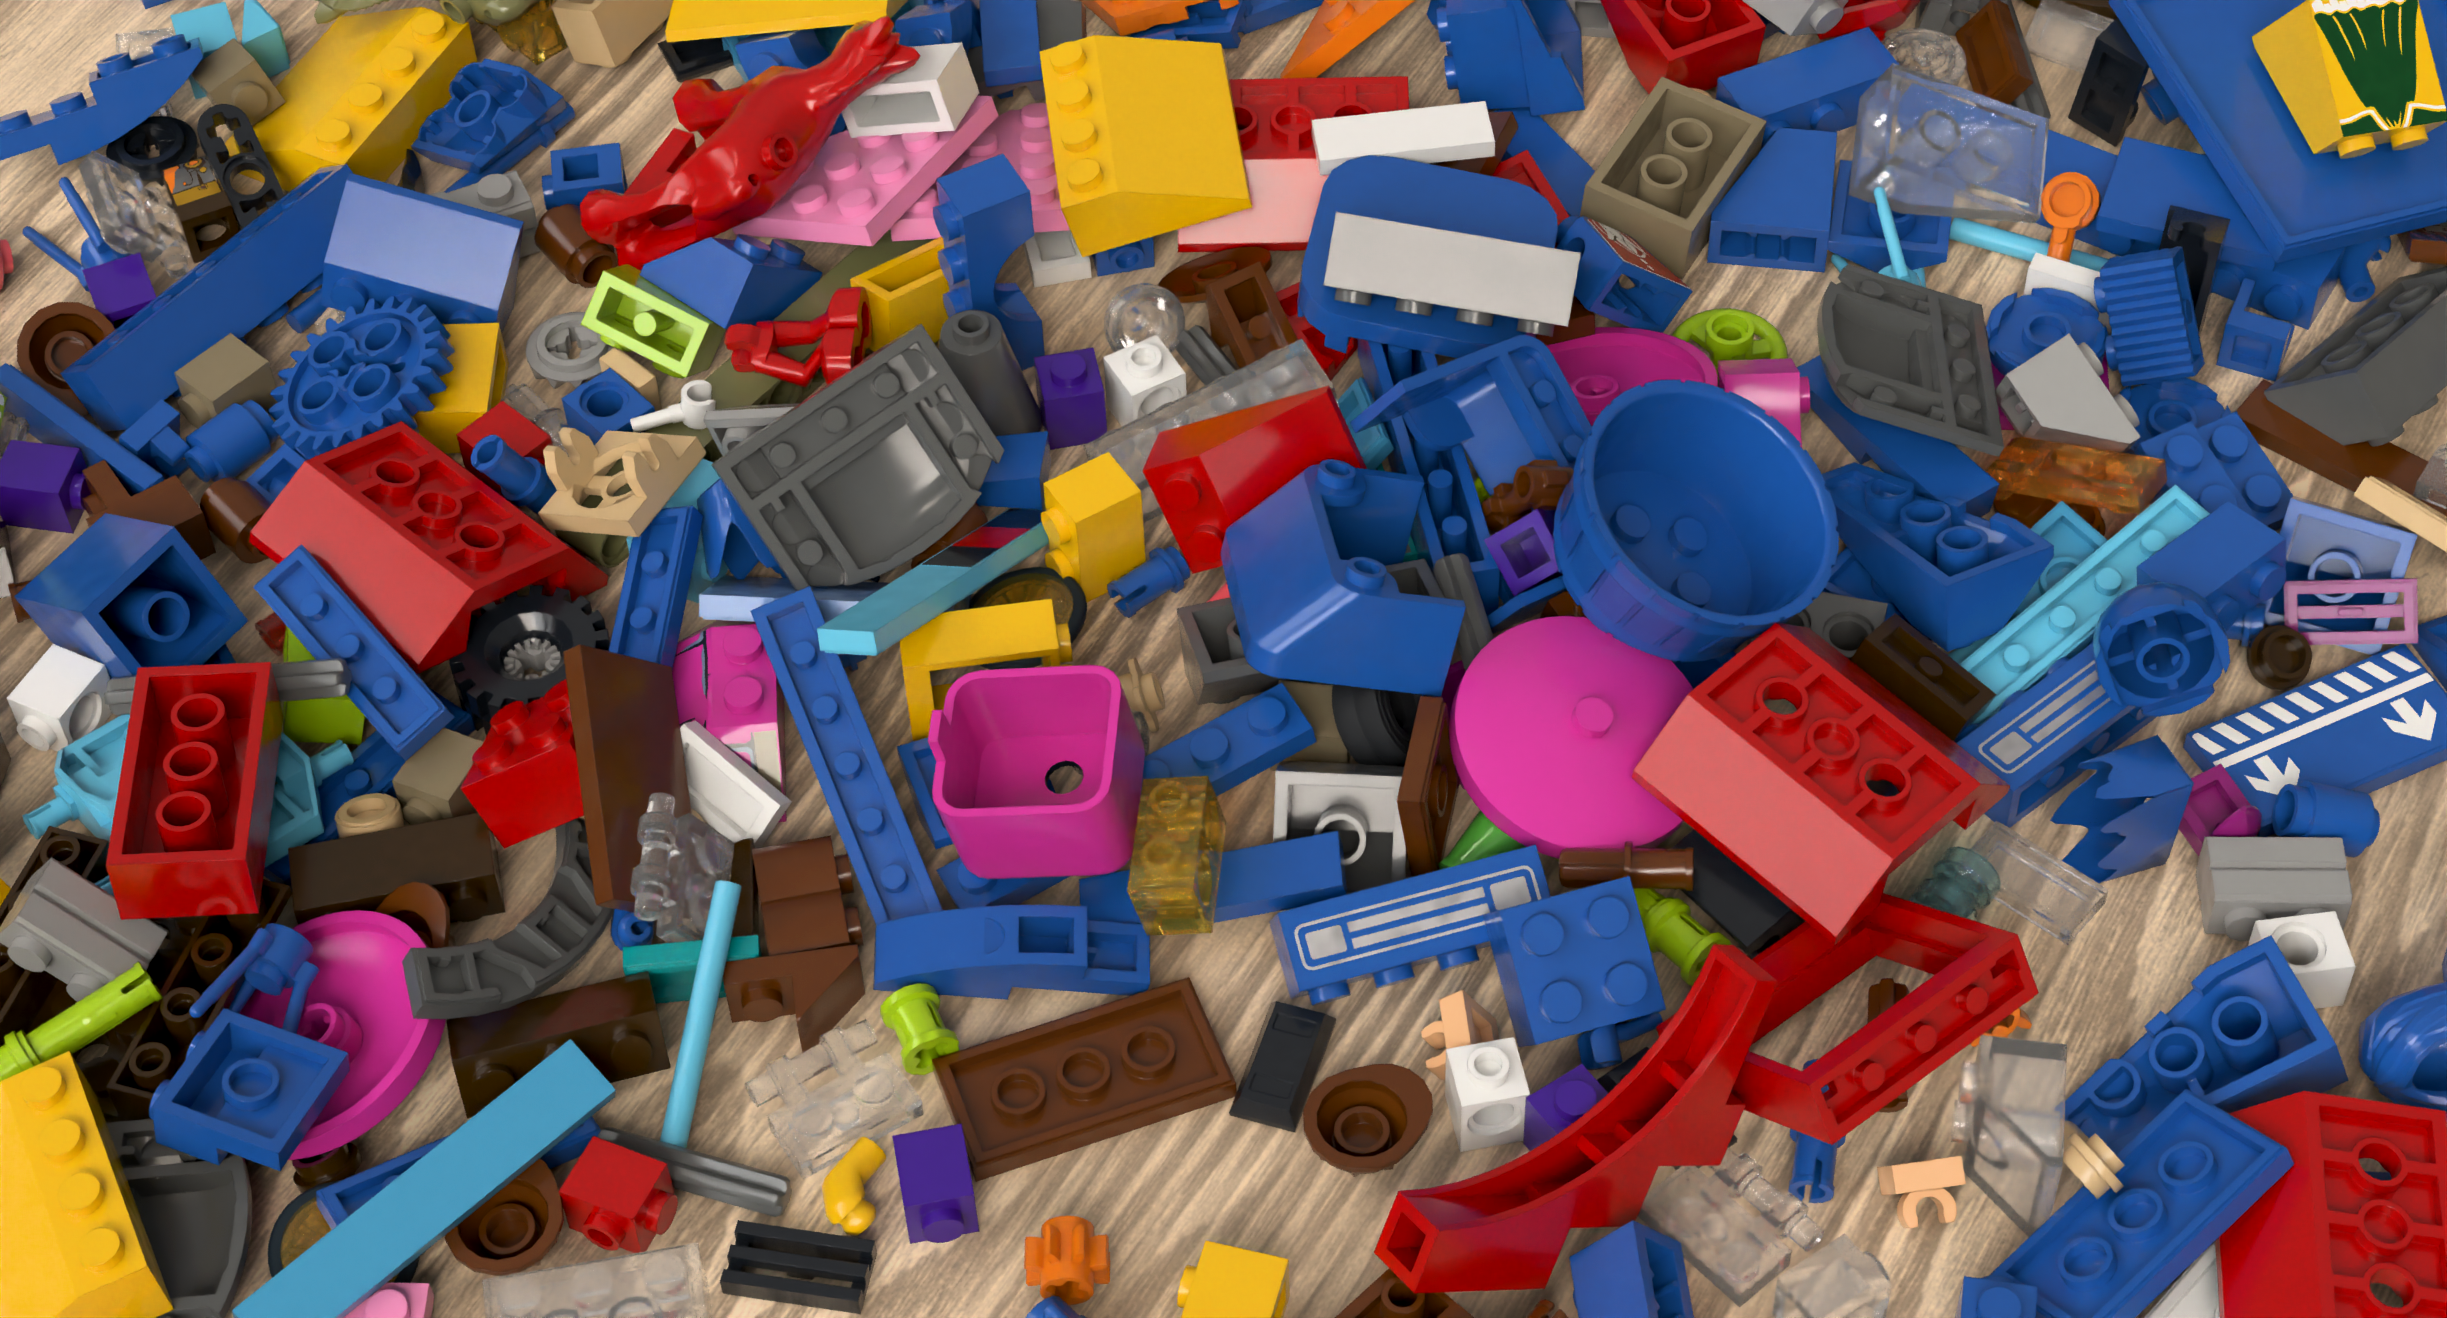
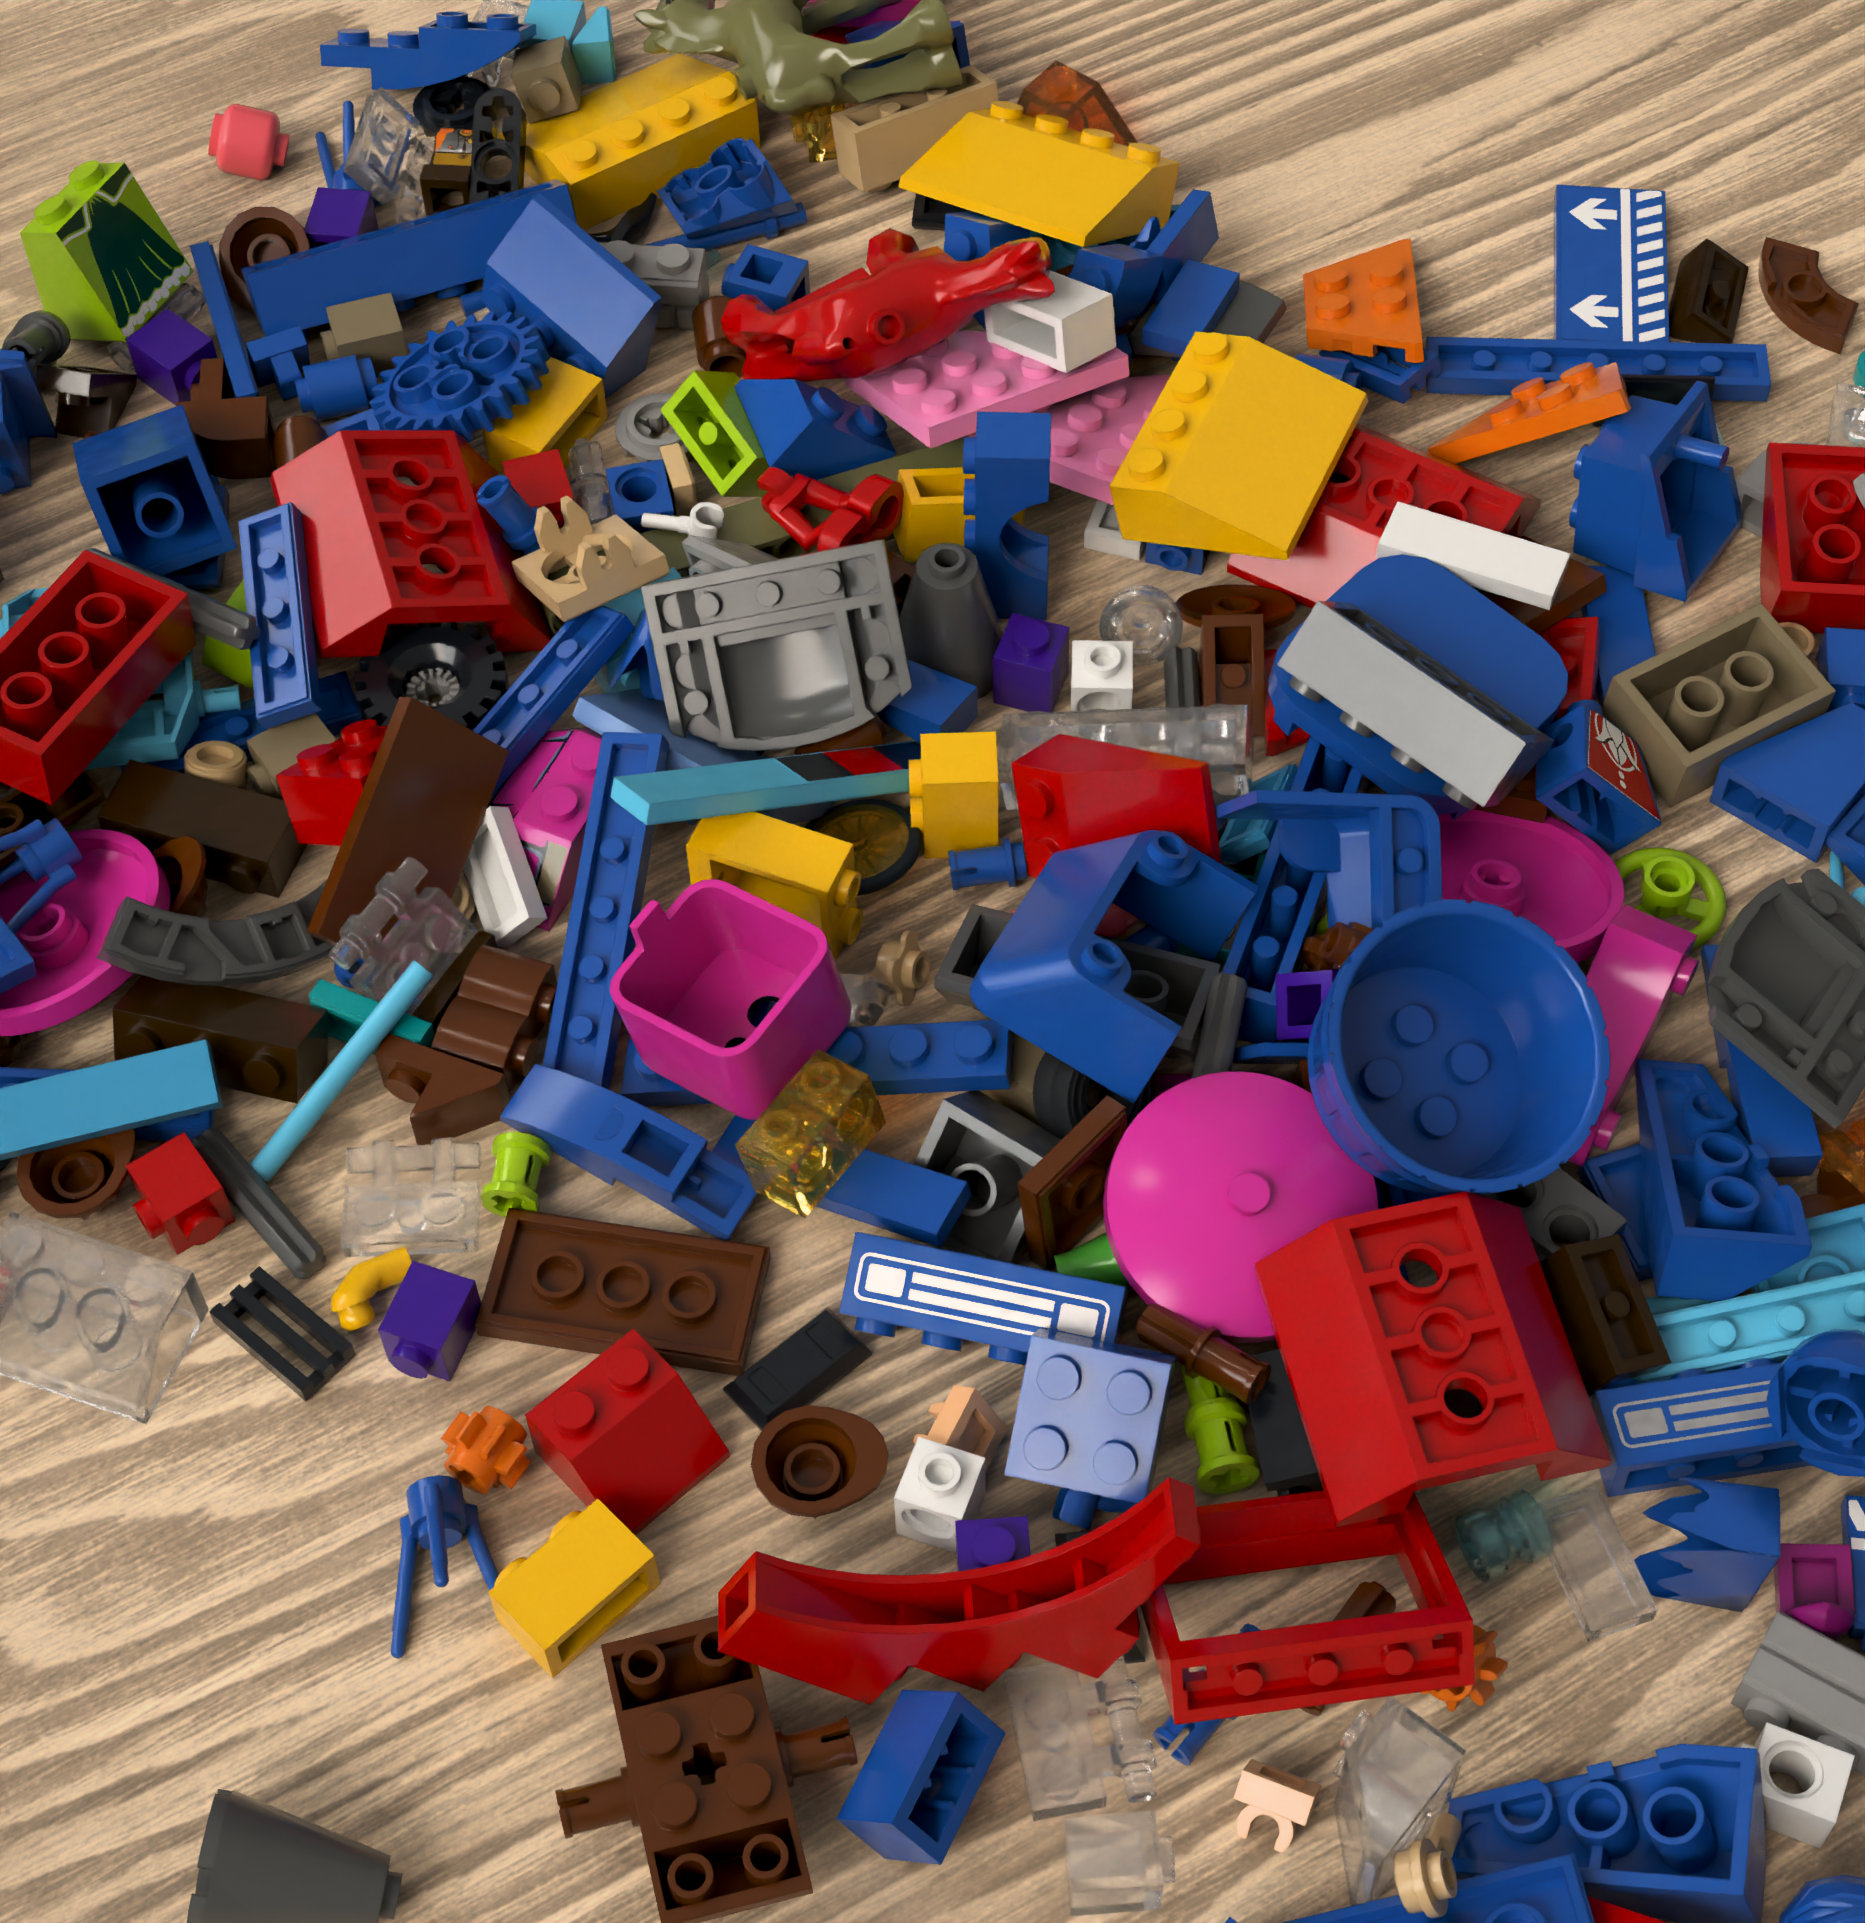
camera: 30 degrees right, 5 degrees up
(60, 699) = (56, 540): white brick -> none
(1179, 1182) = (626, 1433): none -> red slope

